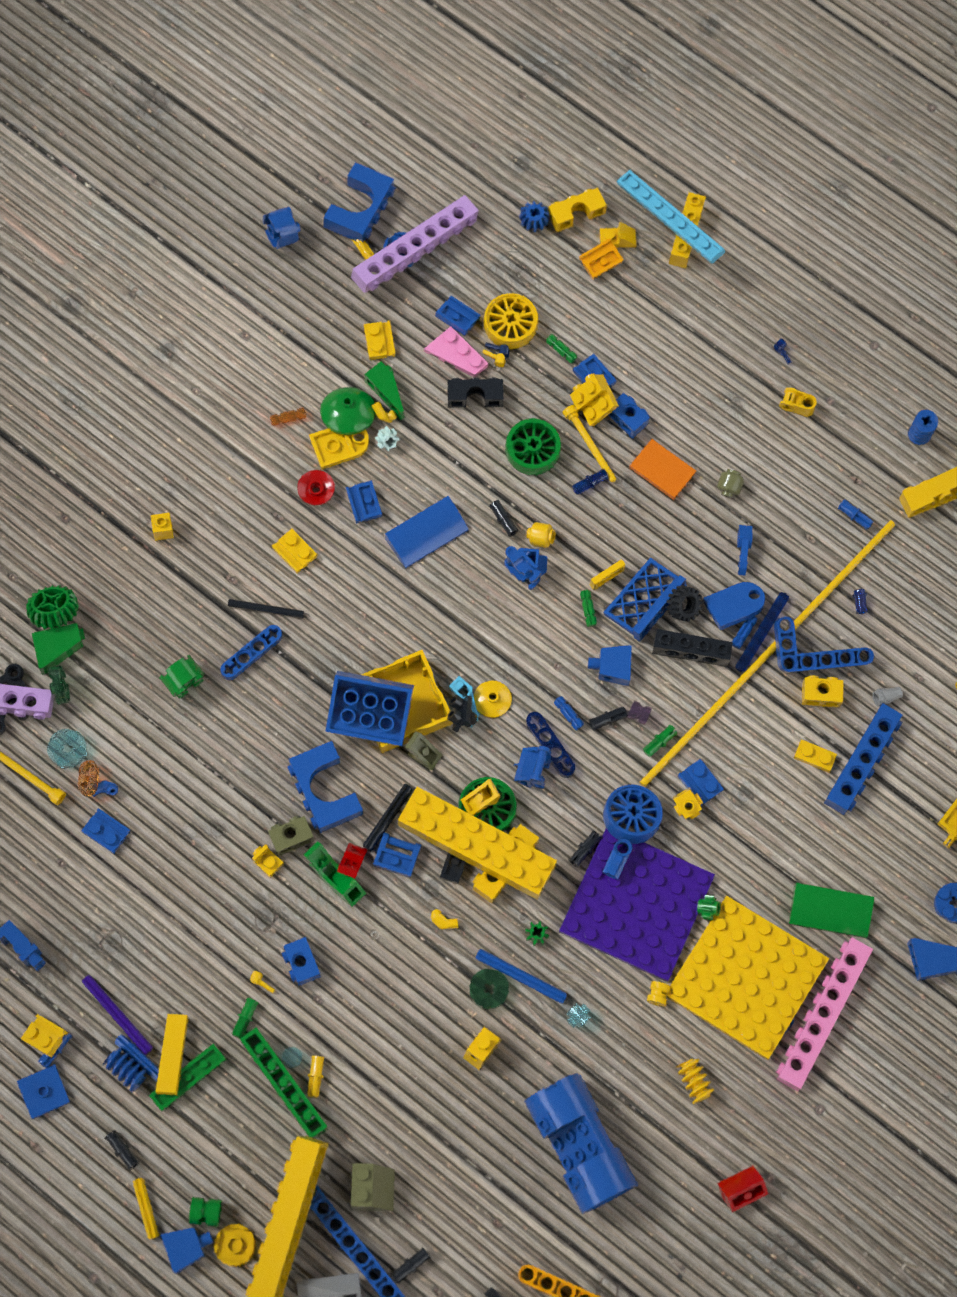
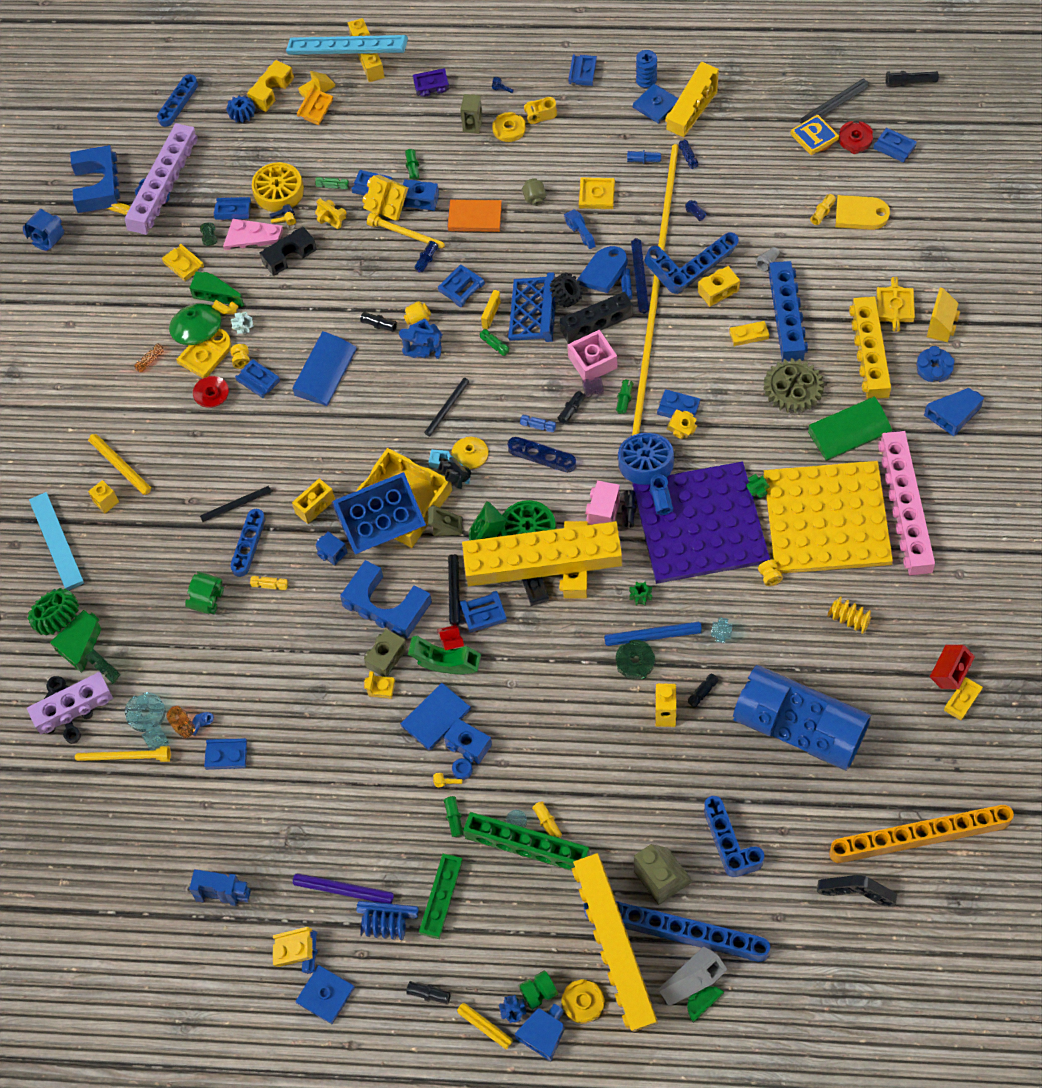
camera: 25 degrees left, 10 degrees down
(60, 777) = (155, 738): none -> clear light blue tile
(99, 539) = (56, 541): none -> medium azure tile
(172, 1054) = (414, 885): yellow tile -> none
(175, 1212) = (512, 1008): none -> blue gear
(196, 503) = (119, 464): none -> yellow axle
(243, 702) = (269, 582): none -> yellow axle
(281, 981) = (462, 769): none -> blue tile
(292, 920) = (435, 716): none -> blue tile
(294, 551) = (227, 448): yellow plate -> none
(312, 707) = (330, 548): none -> blue brick
(328, 654) = (313, 501): none -> yellow brick
(363, 470) = (240, 356): none -> yellow wheel
(410, 1265) = (740, 910): black pin -> none
(419, 327) = (209, 237): none -> clear green bush
(442, 922) = (558, 636): yellow arm -> none
(448, 1195) = (727, 835): none -> blue beam
(451, 781) = (487, 523): none -> green slope
(481, 798) = (520, 517): yellow slope -> none
(484, 165) = (175, 99): none -> blue beam
(504, 641) = (446, 407): none -> black bar
(513, 456) = (362, 259): green piece -> none
(523, 1056) = (703, 689): none -> black axle
(531, 766) = (541, 474): blue piece -> none
(534, 379) = (327, 213): none -> yellow hips
(561, 835) = (604, 503): none -> bright pink brick
(599, 526) = (457, 281): none -> blue plate
(613, 664) = (546, 367): blue torso -> none
(644, 378) = (412, 164): none -> green axle
(659, 684) = (592, 356): none -> bright pink brick
(721, 304) = (431, 82): none -> dark purple bracket
(731, 365) = (471, 113): none -> olive brick
(731, 1221) = (963, 698): none -> yellow plate
(756, 408) = (509, 134): none -> yellow tile
(786, 521) = (596, 193): none -> yellow tile
(822, 850) = (779, 378): none -> olive gear
(867, 385) = (582, 70): none -> blue plate
(898, 539) = (688, 154): none -> clear blue axle
(908, 466) = (655, 103): none -> blue plate
(936, 806) = (878, 369): none -> yellow brick

